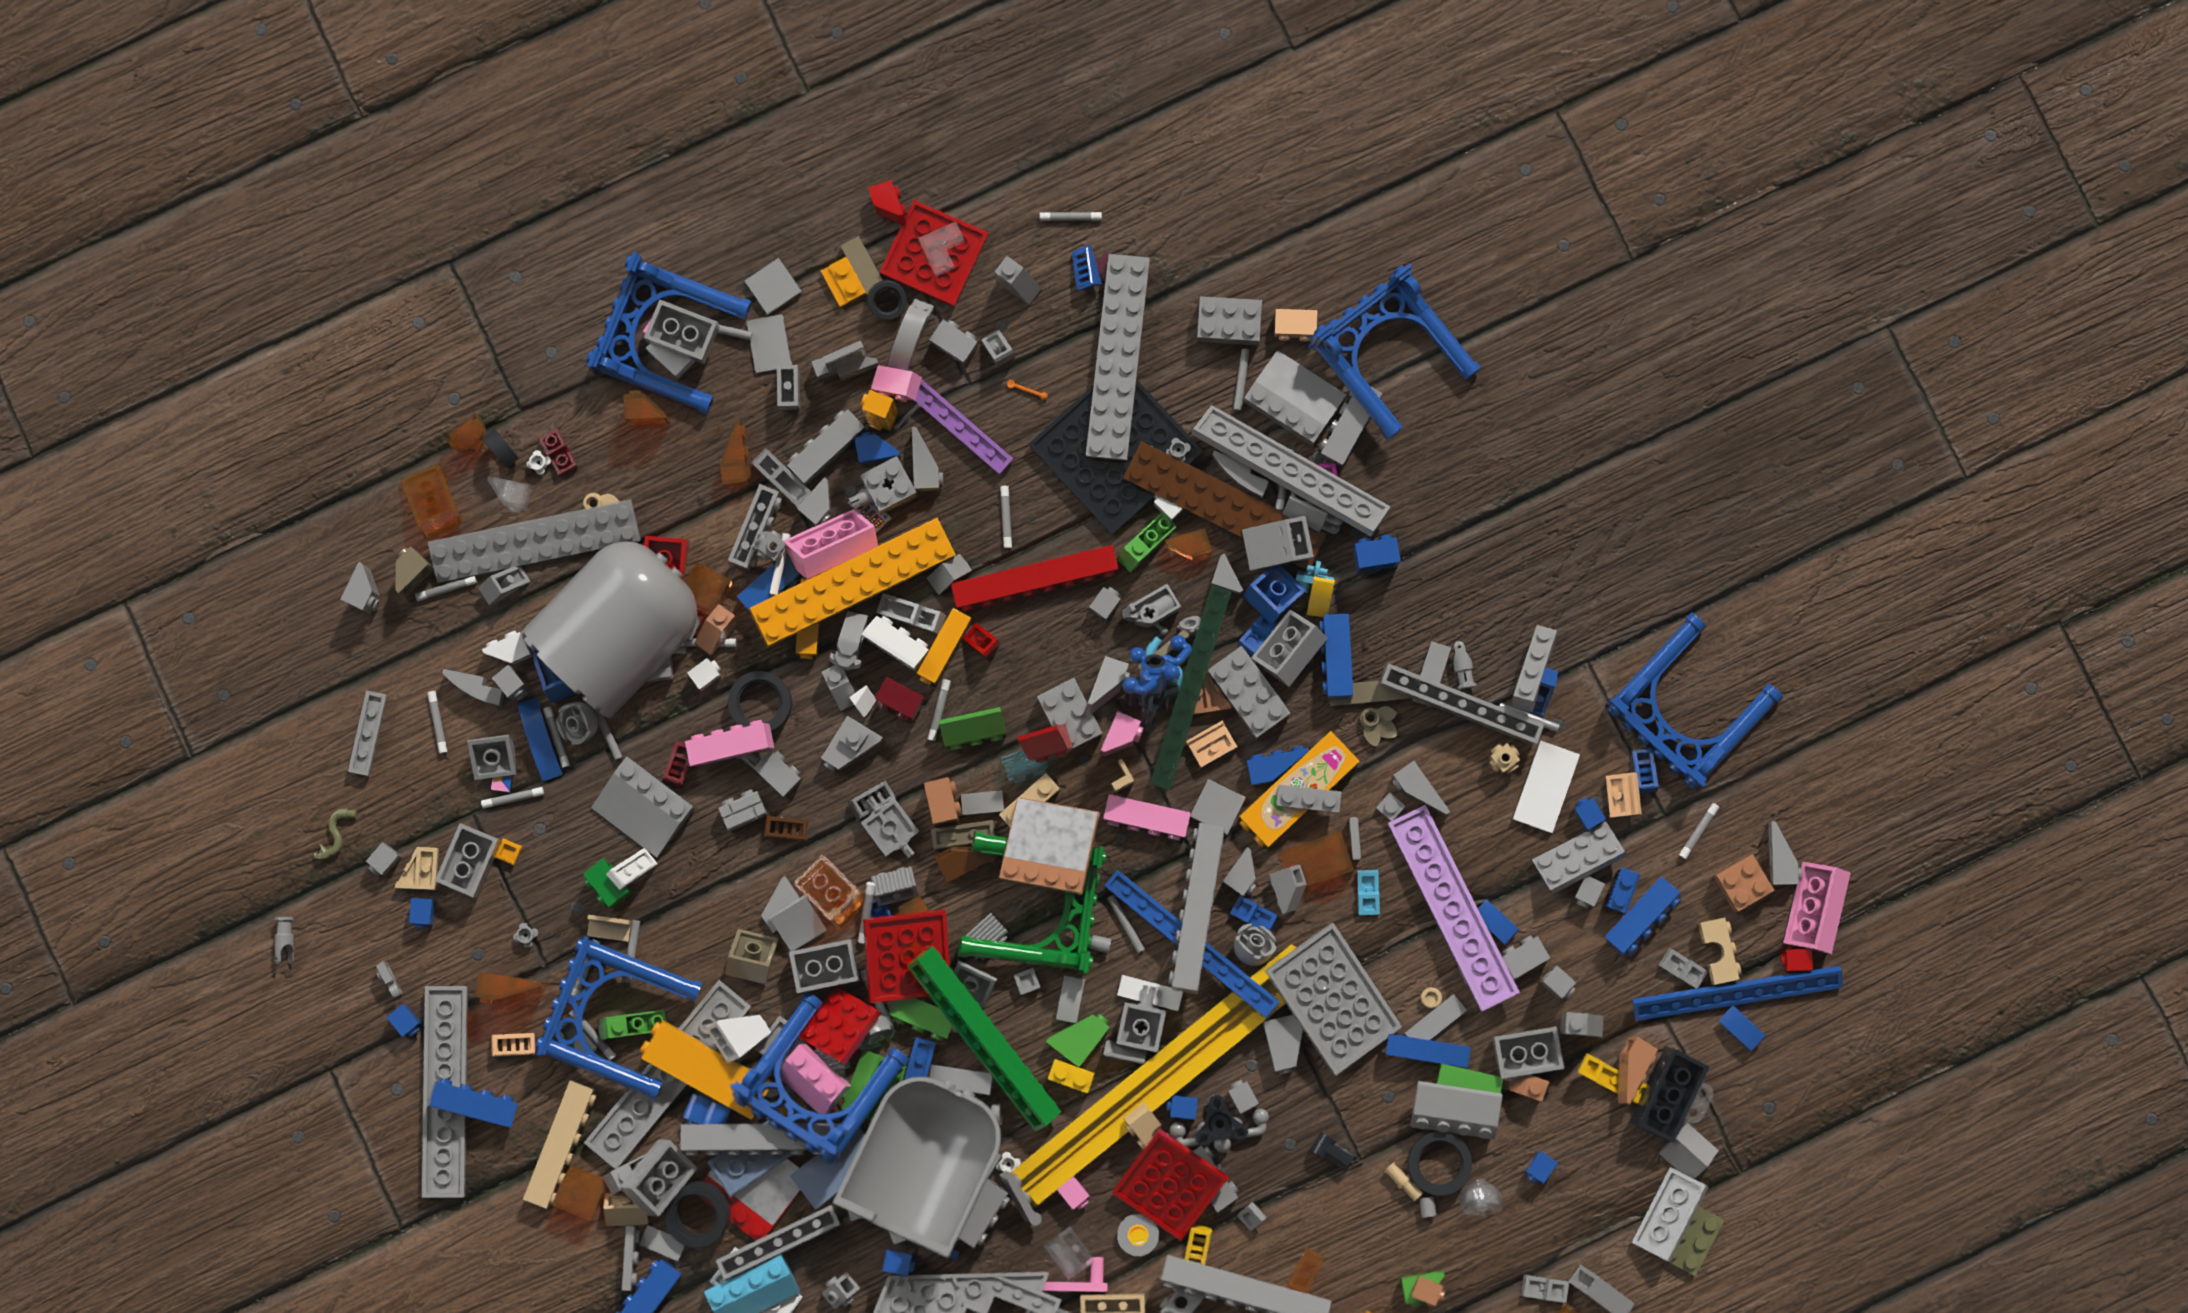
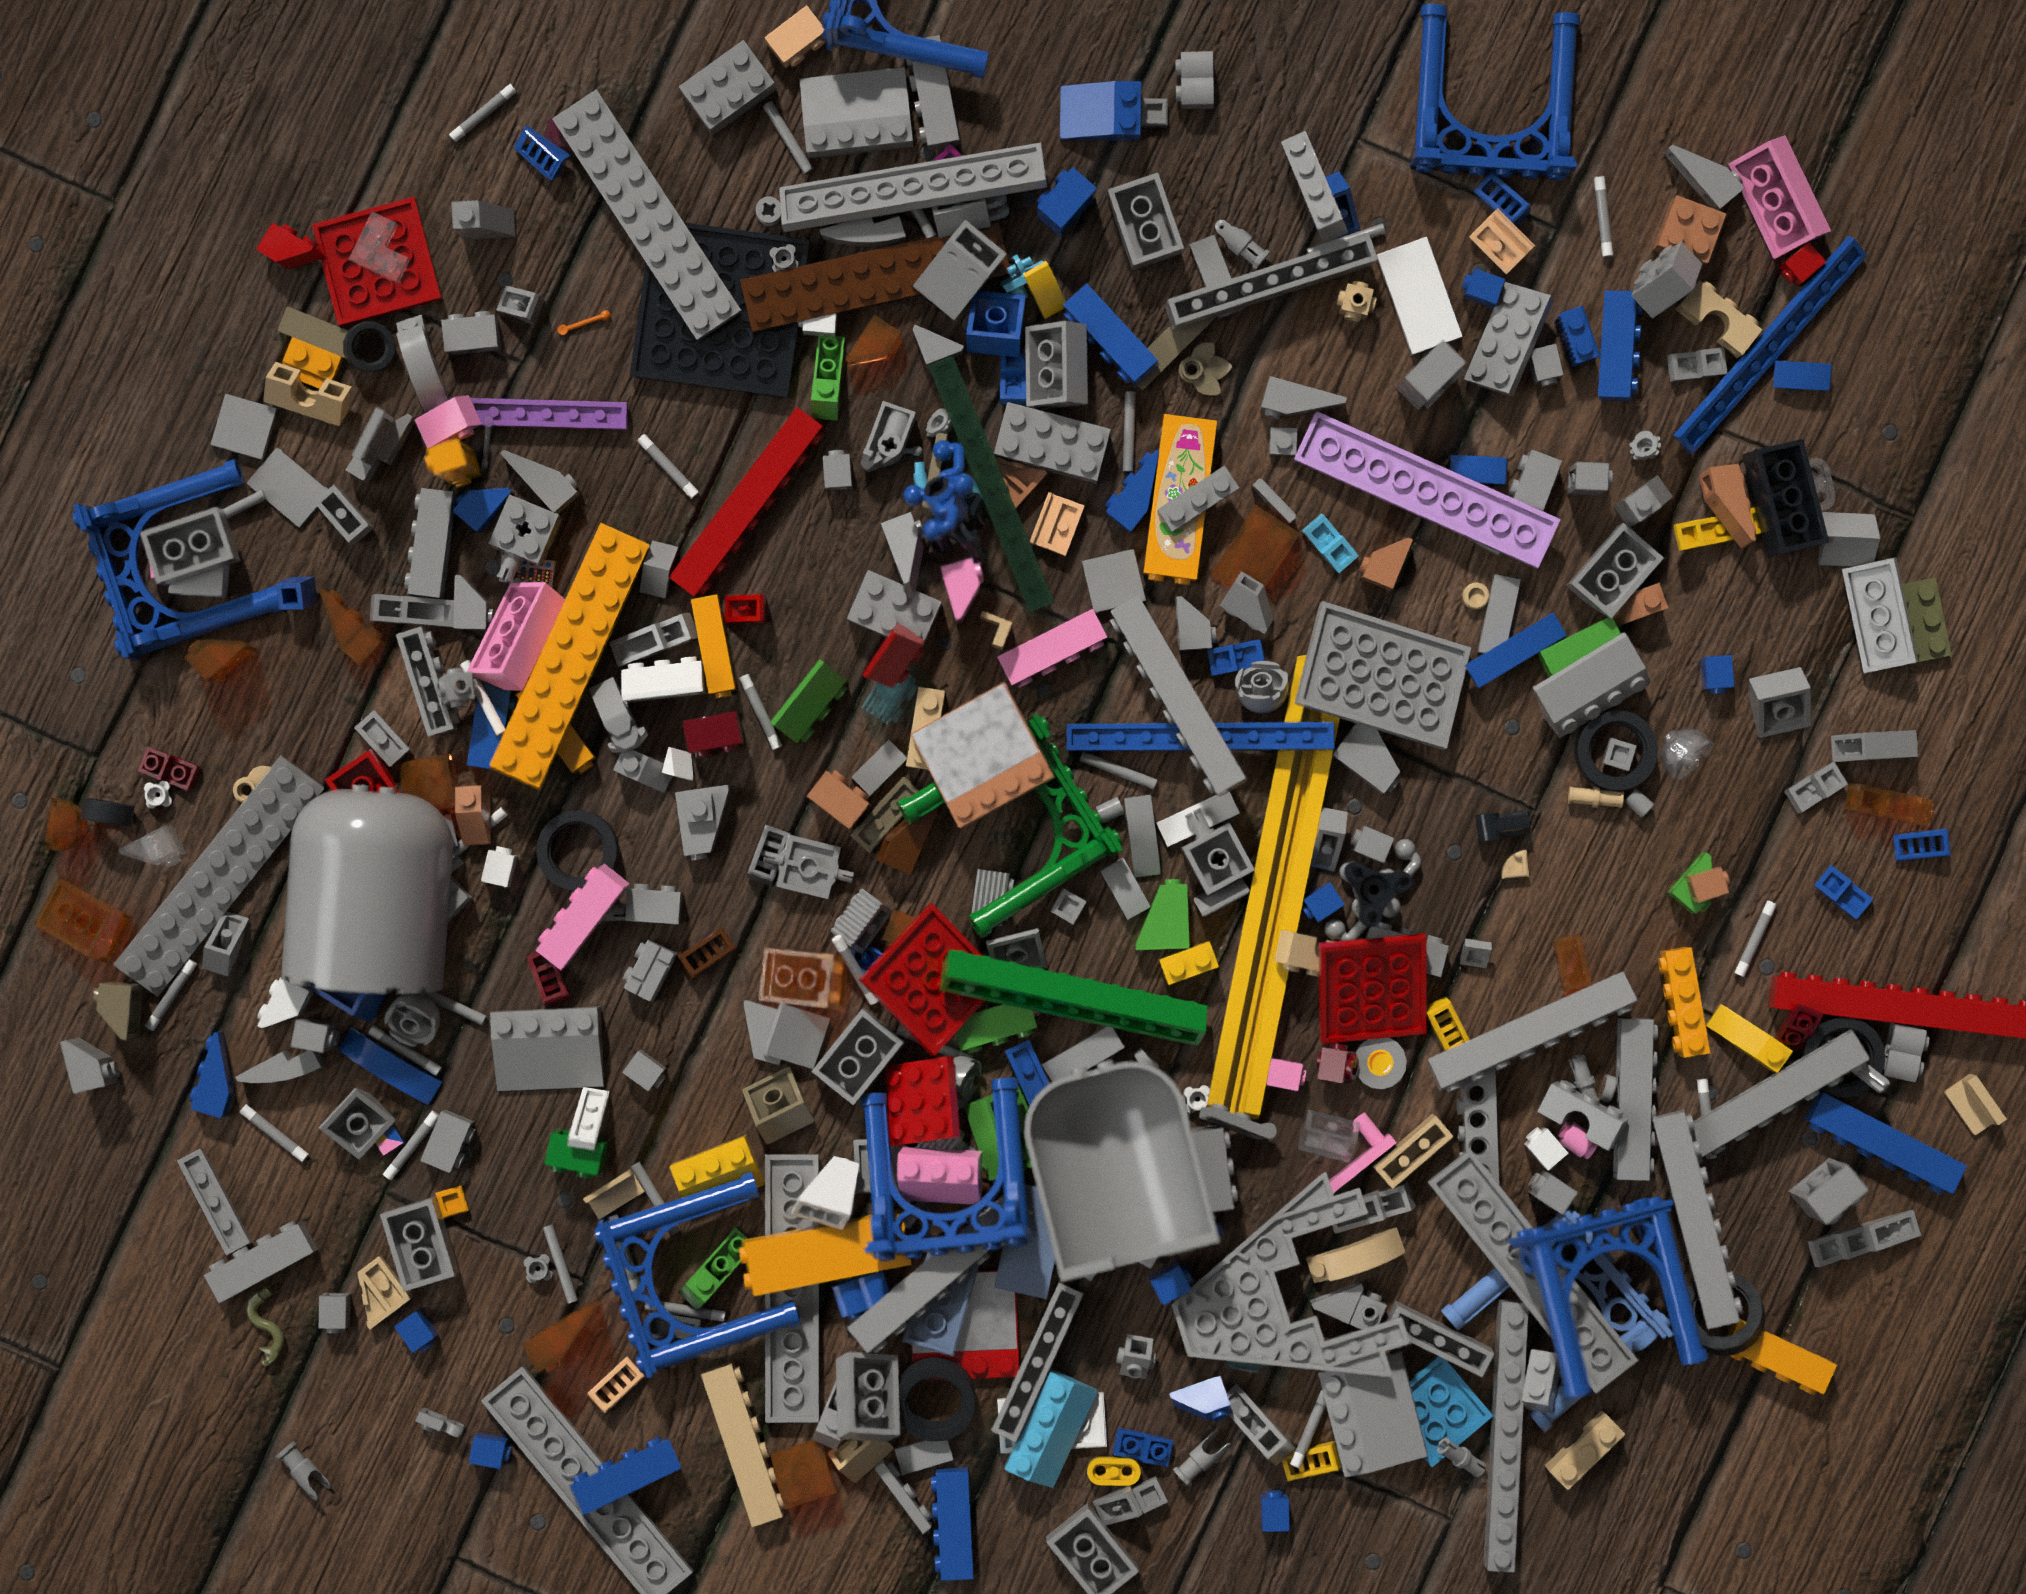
camera: 50 degrees left, 5 degrees up
(364, 792) = (260, 1262): none -> light grey brick
(426, 665) = (215, 1084): none -> blue slope
(536, 813) = (448, 1141): none -> light grey brick
(541, 943) = (560, 1264): none -> light grey bar
(684, 963) = (716, 1167): none -> yellow slope
(689, 869) = (645, 1071): none -> light grey brick
(699, 539) = (382, 738): none -> light grey plate
(721, 410) = (296, 593): none -> blue brick
(816, 287) = (286, 391): none -> tan arch
(1107, 975) = (1142, 836): none -> light grey slope
(1111, 1214) = (1337, 1064): none -> brick
(1193, 418) = (772, 215): none -> light grey wheel
(1218, 1071) = (1329, 838): none -> light grey slope
(1301, 724) = (1129, 428): none -> light grey bar
(1320, 1183) = (1516, 865): none -> tan tile
(1391, 932) = (1385, 564): none -> nougat slope
(1415, 605) = (1145, 221): none -> light grey brick
(1439, 1167) = (1619, 754): none -> light grey plate
(1443, 517) = (1101, 111): none -> slope
(1475, 544) = (1153, 112): none -> light grey tile
(1511, 840) = (1435, 371): none -> light grey brick
(1516, 546) = (1196, 80): none -> light grey brick
(1565, 1217) = (1780, 702): none -> light grey slope
(1610, 991) = (1645, 446): none -> light grey animal
(1704, 899) = (1666, 279): none -> light grey brick

